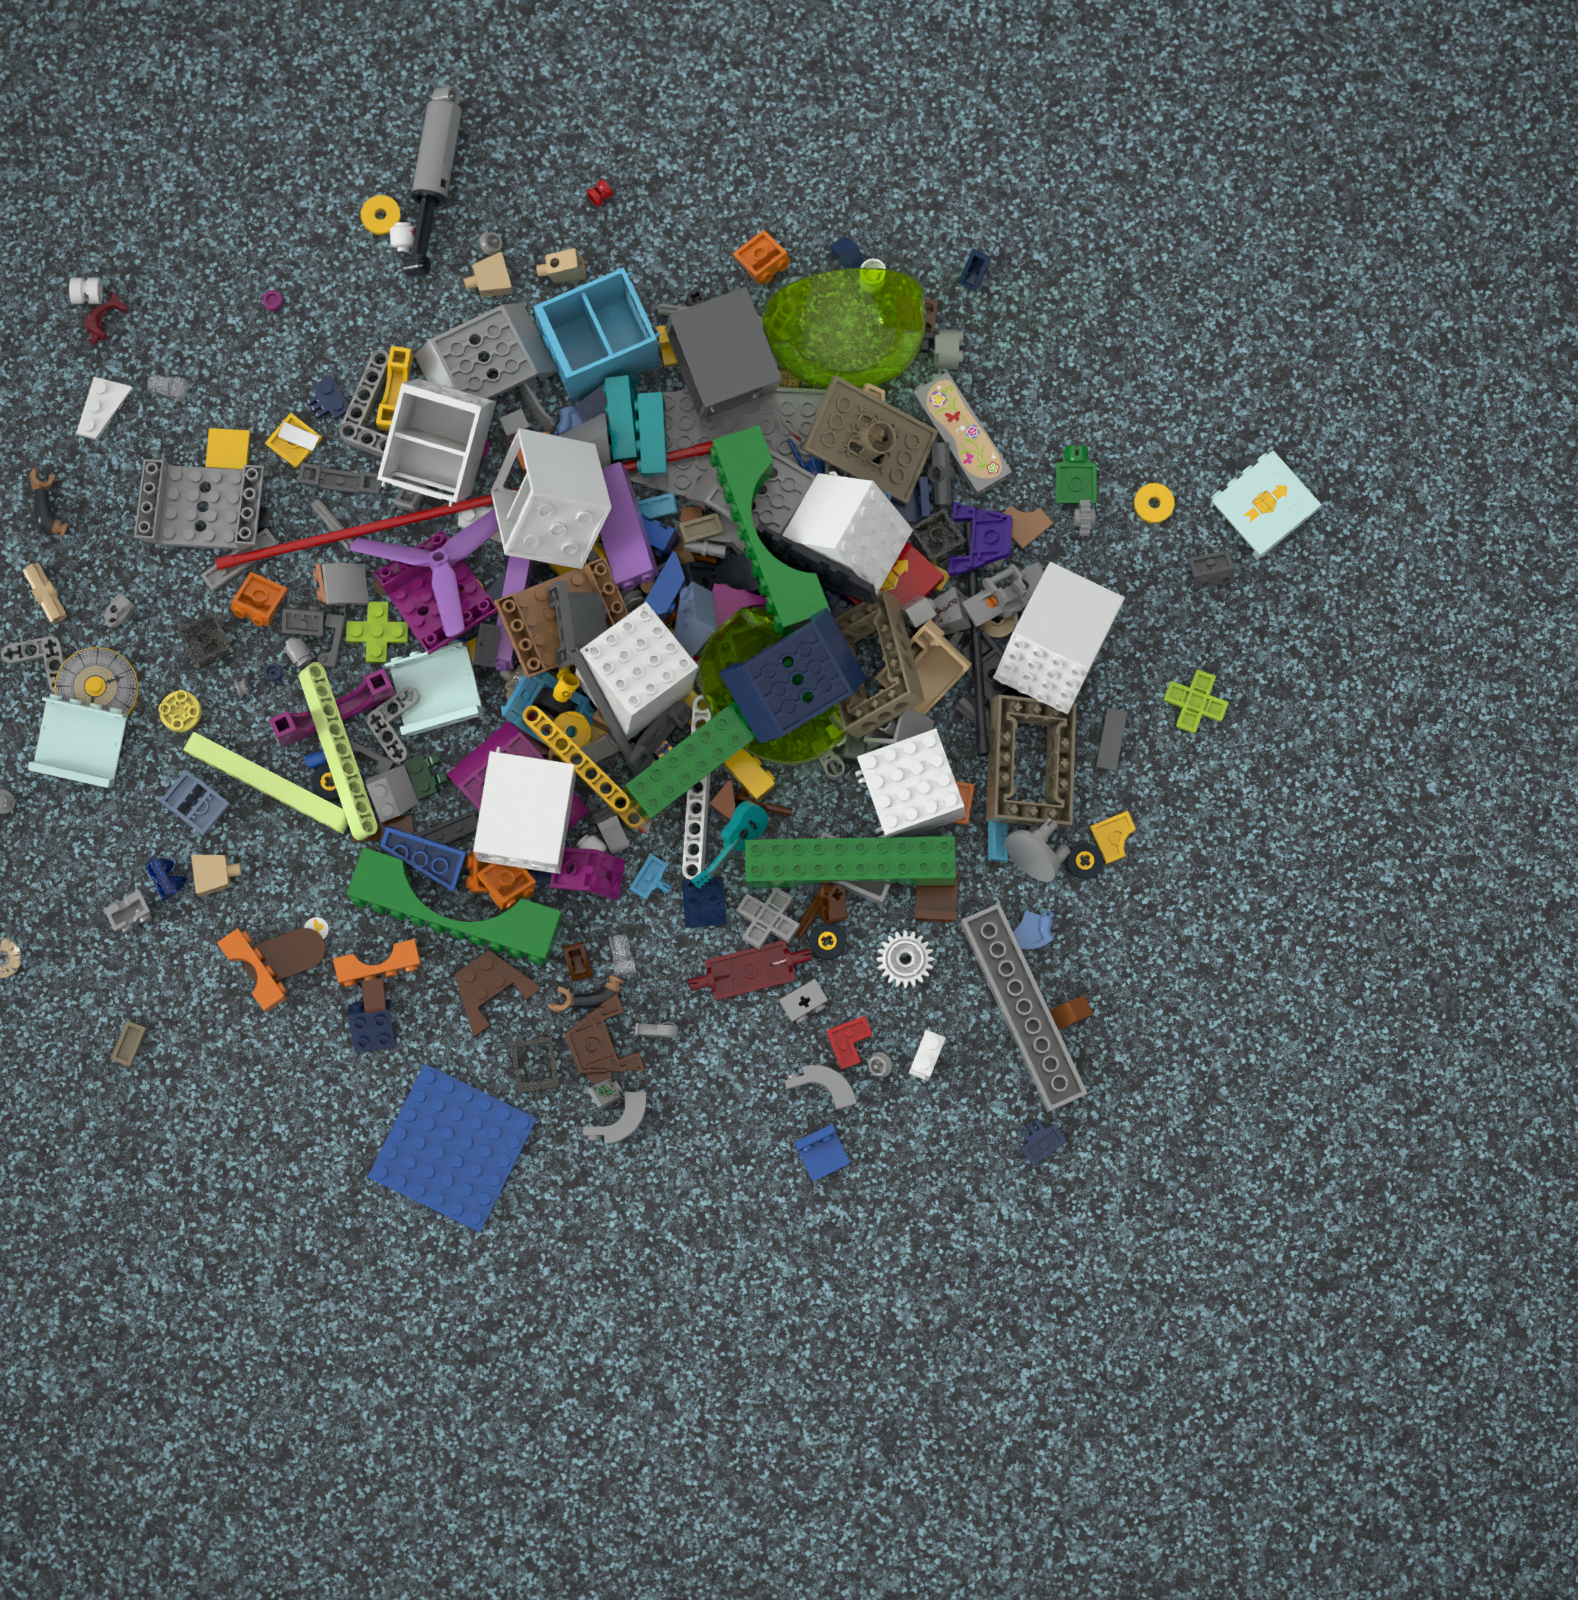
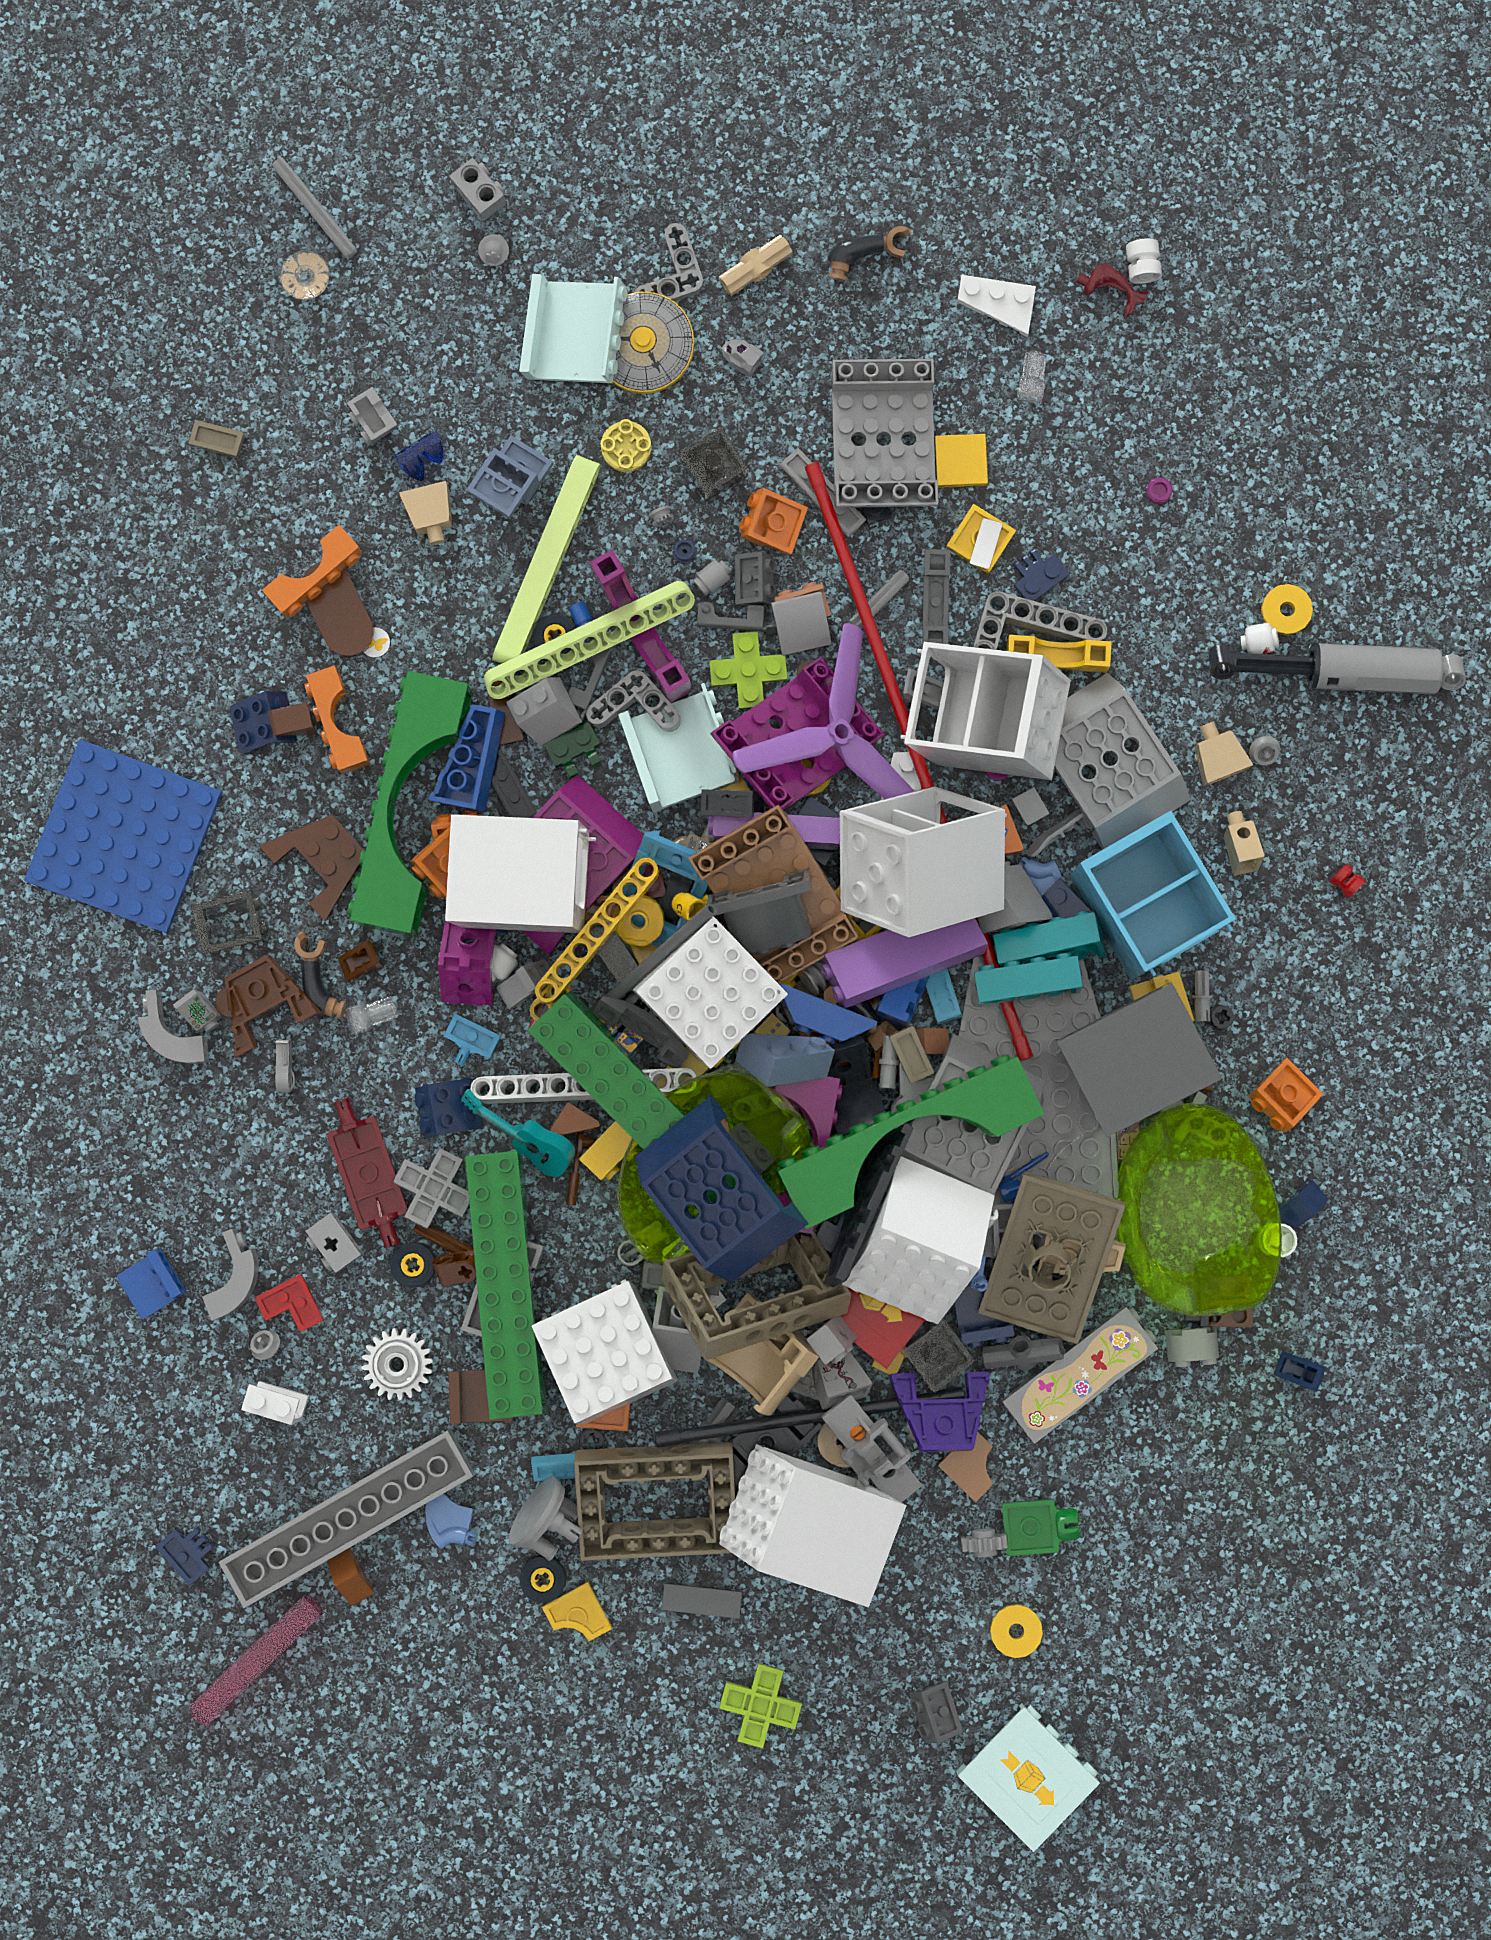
camera: 90 degrees right, 5 degrees up
(1130, 1092) = (255, 1660): none -> clear pink brick

